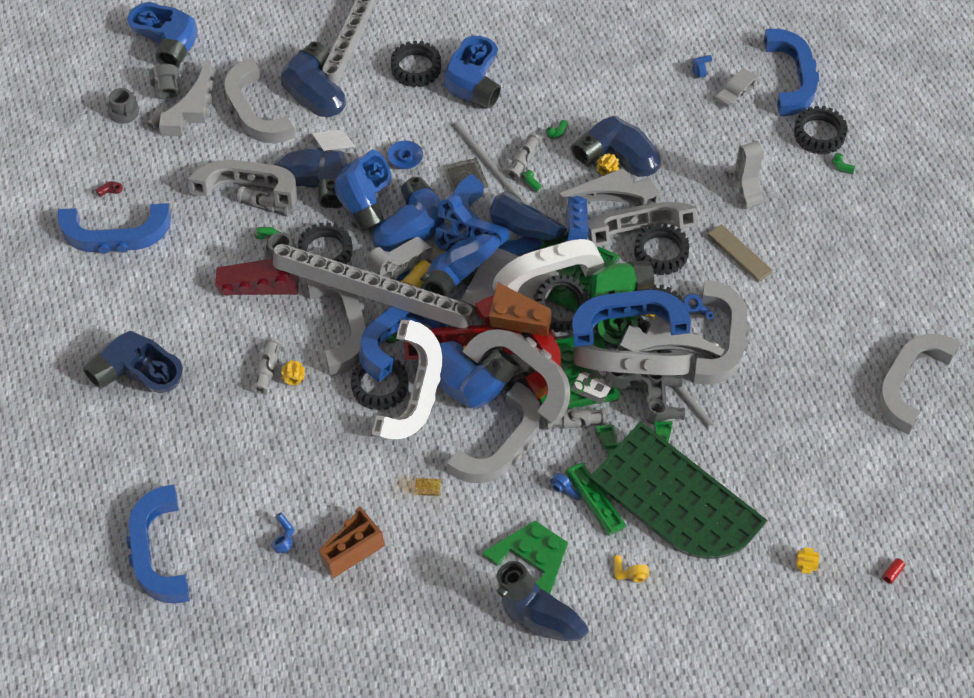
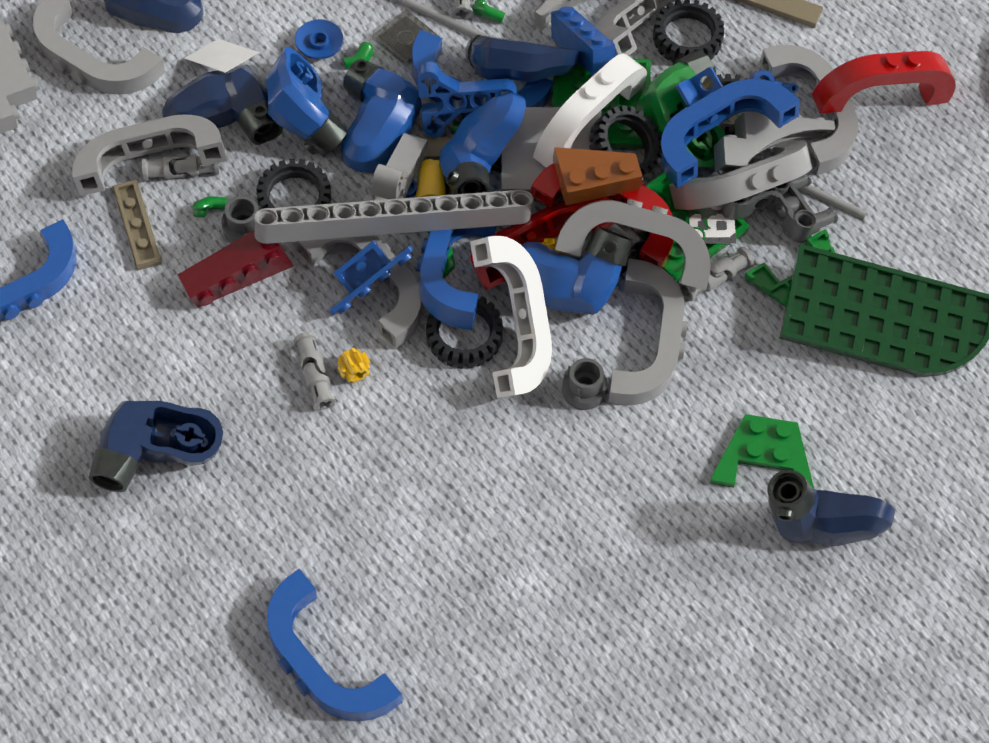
camera: 30 degrees left, 5 degrees up
(215, 227) = (137, 225): none -> dark tan tile
(283, 542) = (472, 577): blue plate -> none
(335, 312) = (363, 270): none -> blue bracket
(351, 544) = (558, 540): dark orange wedge -> none
(428, 487) = (600, 430): clear yellow piece -> none
(429, 176) = (364, 52): none -> green arm
(436, 460) = (584, 396): none -> dark grey piece
(562, 484) = (749, 357): blue plate -> none
(595, 499) = (796, 358): green tile -> none
(624, 284) = (692, 90): none -> blue bracket
(637, 573) = (895, 422): yellow plate -> none
(779, 328) = (921, 67): none -> red arch

